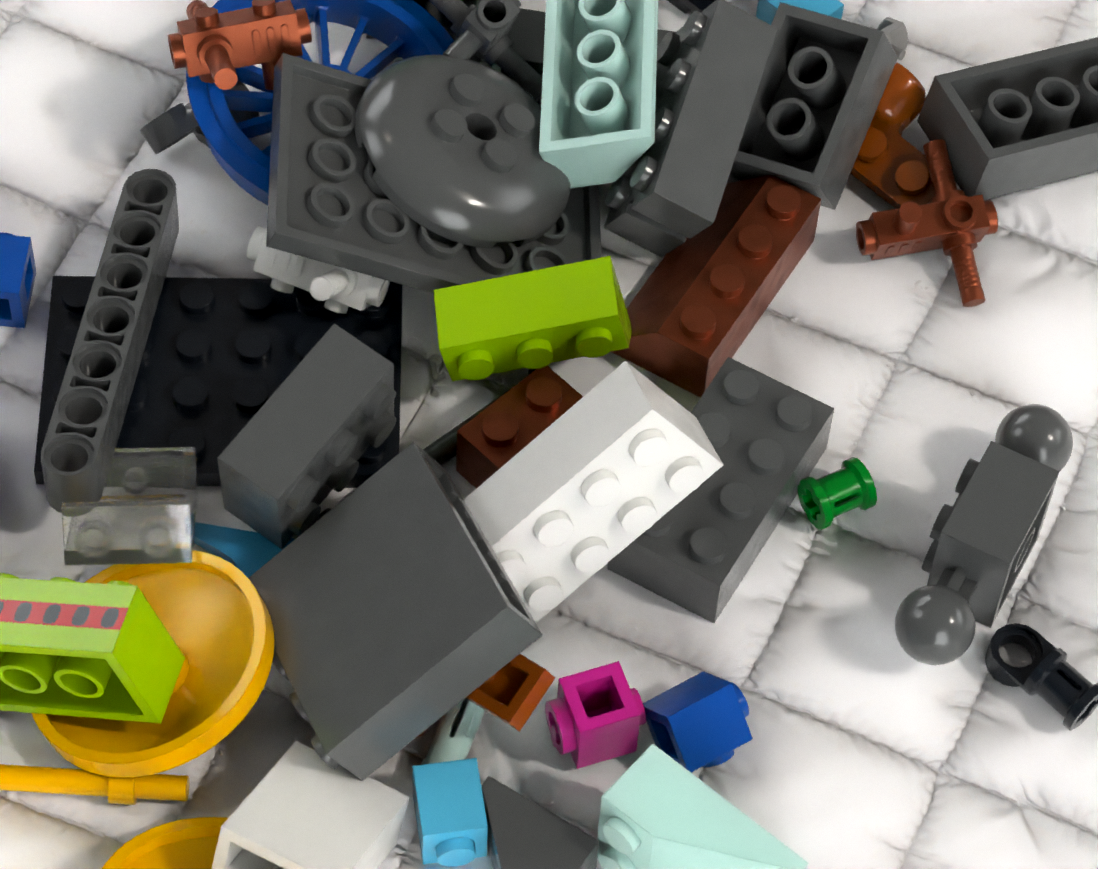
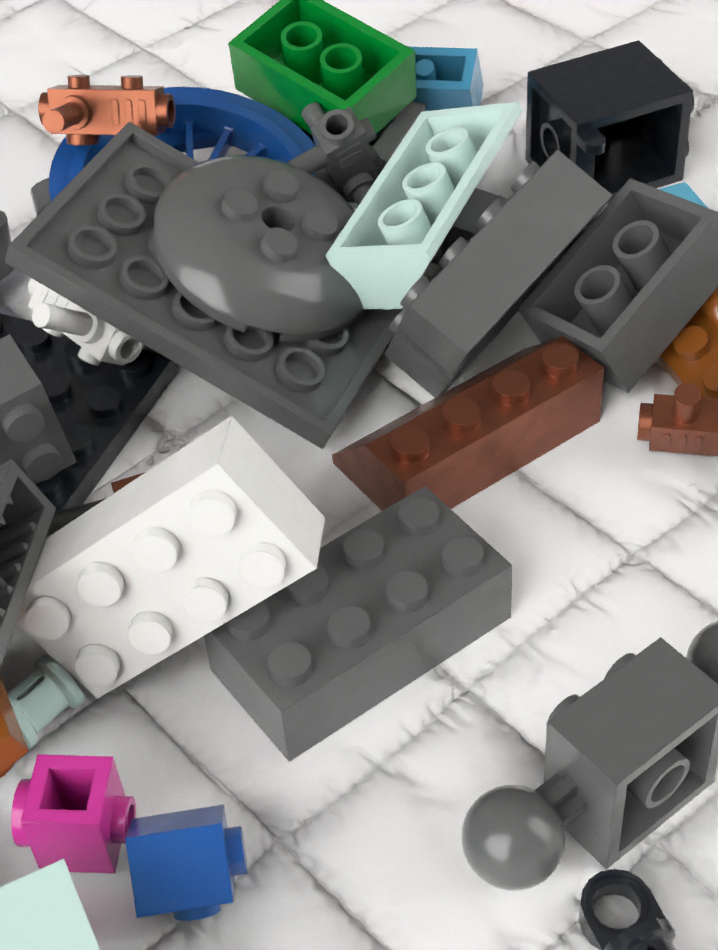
camera: 30 degrees right, 10 degrees down
(531, 319) = (271, 389): lime slope -> none
(837, 493) = (488, 661): green bush -> none

